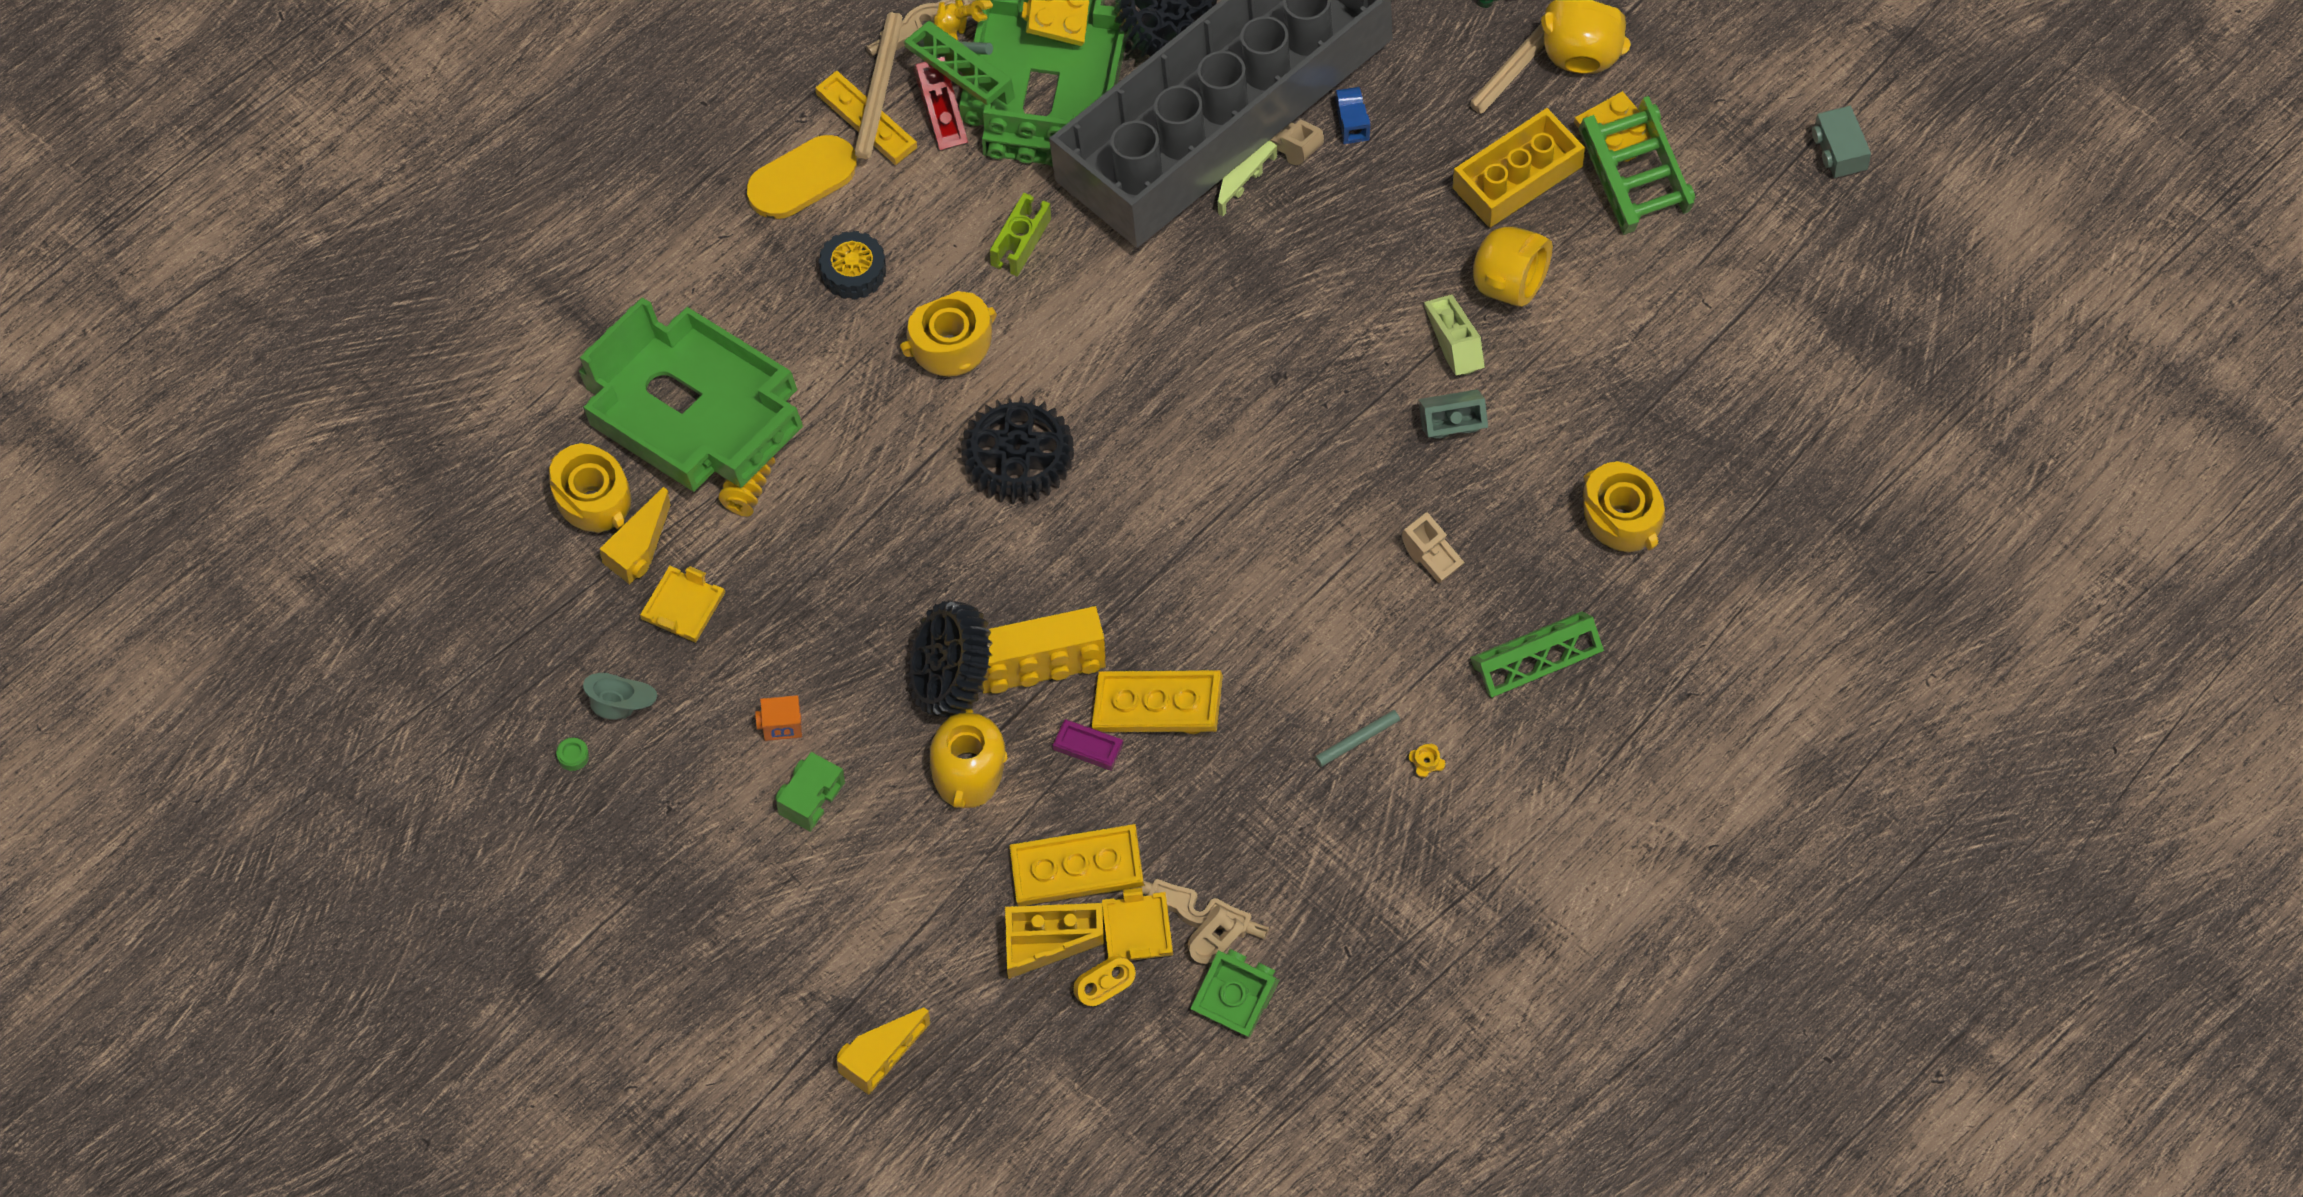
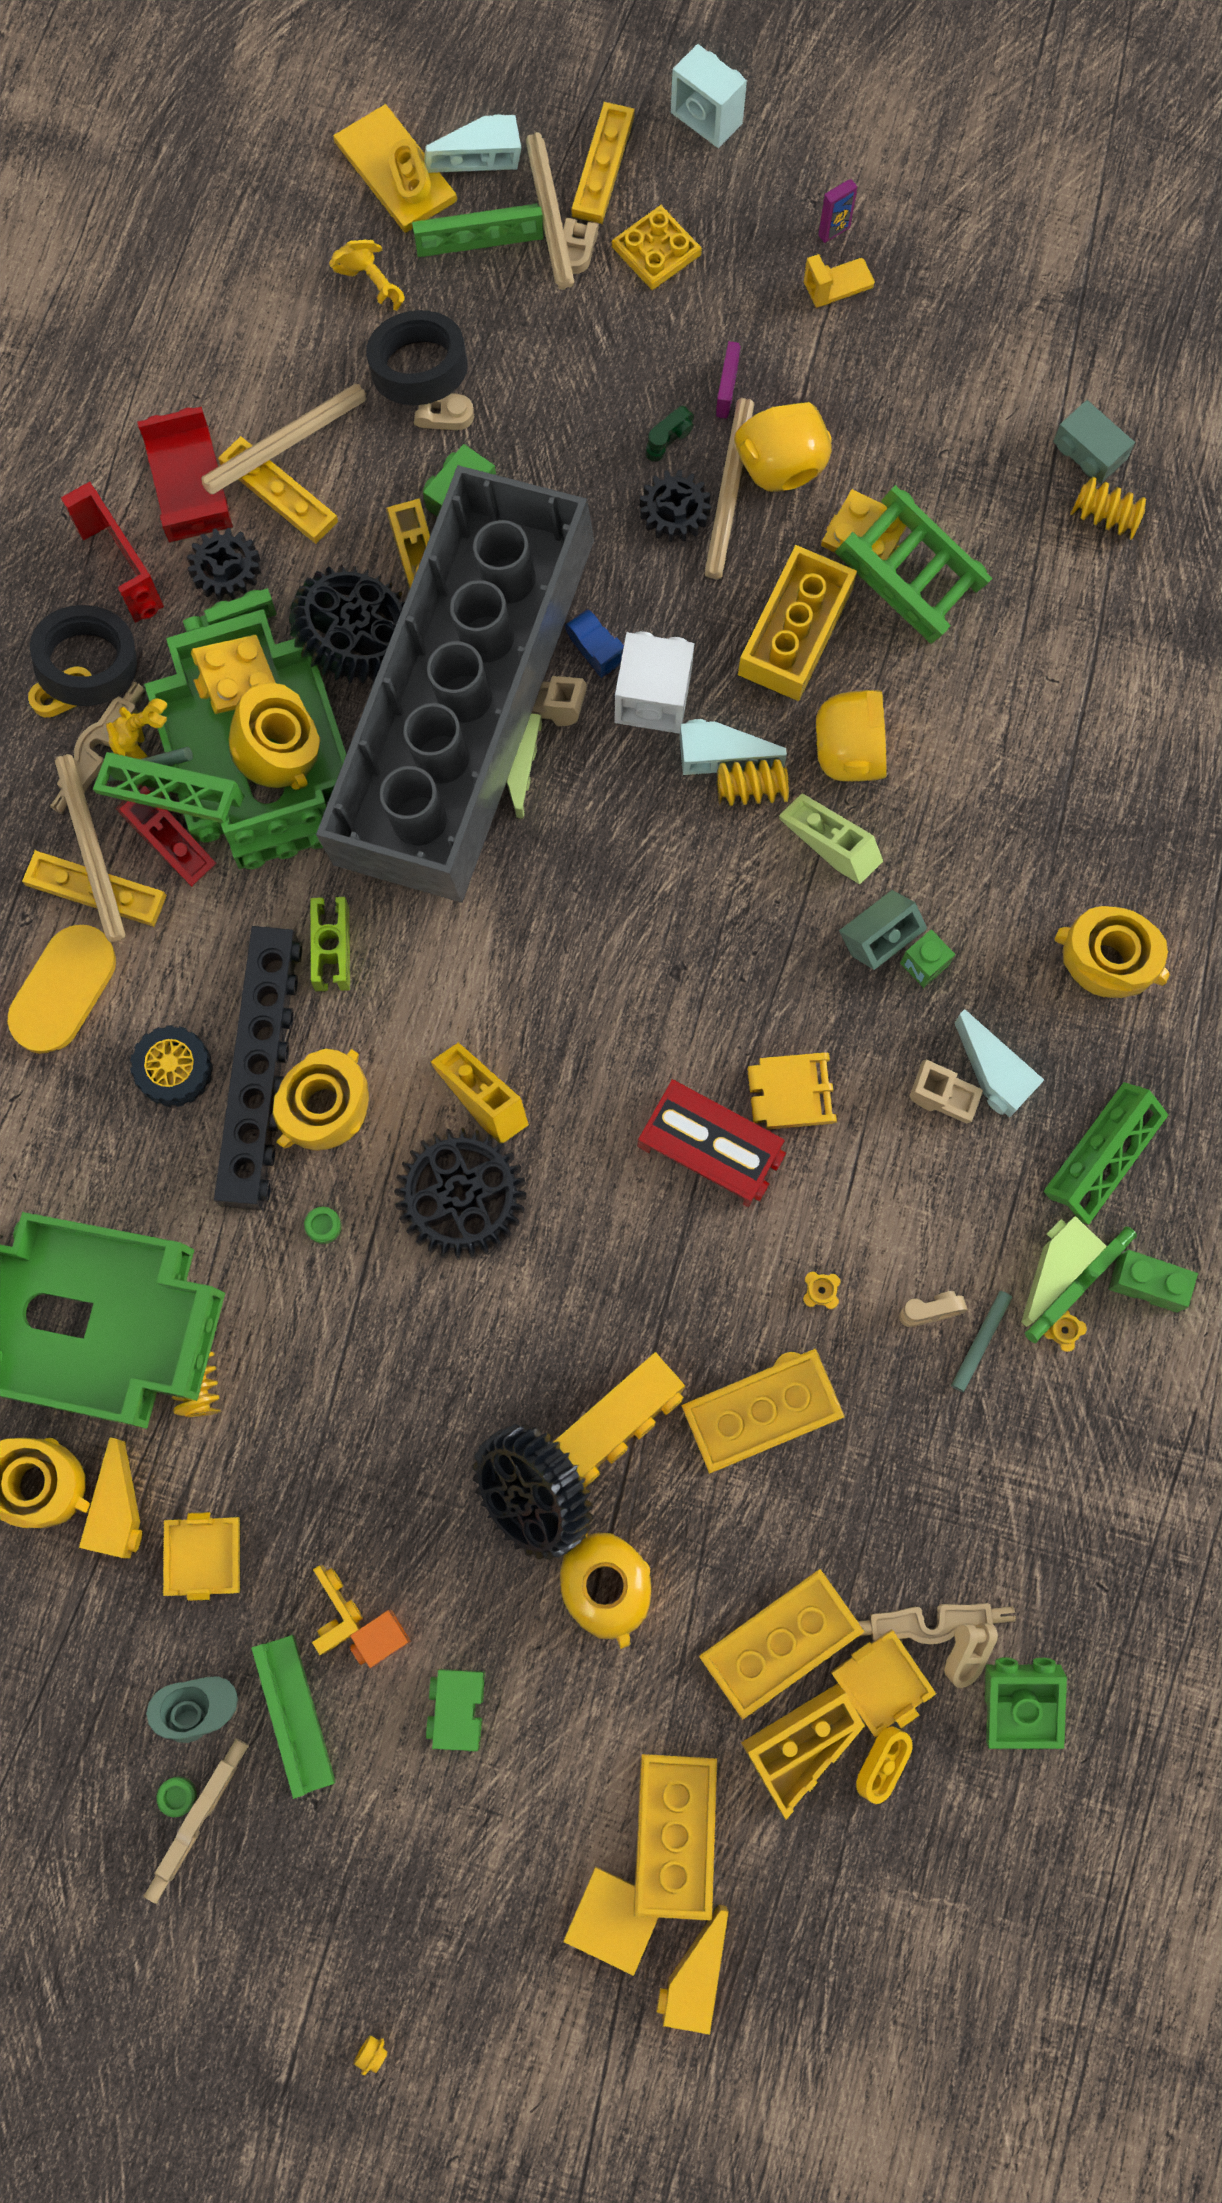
camera: 30 degrees left, 15 degrees up
(590, 764) = (190, 1828): none -> tan piece
(613, 985) = (370, 2055): none -> yellow plate
(687, 739) = (293, 1716): none -> bright green fence
(747, 698) = (334, 1633): none -> yellow bracket
(841, 985) = (607, 1924): none -> yellow tile
(901, 426) = (322, 1225): none -> bright green tile
(917, 279) = (265, 946): none -> black brick
(919, 951) = (675, 1837): none -> yellow tile
(1060, 66) = (275, 714): none -> yellow piece
(1074, 389) = (482, 1093): none -> yellow slope
(1088, 744) = (714, 1493): magenta tile -> none
(1231, 501) = (713, 1142): none -> red panel
(1254, 636) = (829, 1283): none -> yellow plate
(1312, 496) = (791, 1091): none -> yellow plate
(1330, 696) = (944, 1307): none -> tan plate
(1377, 159) = (653, 682): none -> white brick
(1406, 233) = (711, 743): none -> light aqua slope
(1415, 267) = (752, 781): none -> yellow piece
(1444, 732) = (1080, 1284): none -> bright green piece
(1451, 711) = (1060, 1263): none -> yellowish green slope
(1474, 43) = (679, 493): none -> black gear
(1476, 451) = (927, 958): none -> bright green brick
(1487, 562) = (1000, 1072): none -> light aqua slope
(1515, 753) = (1153, 1281): none -> bright green brick
(1825, 196) = (1110, 507): none -> yellow piece

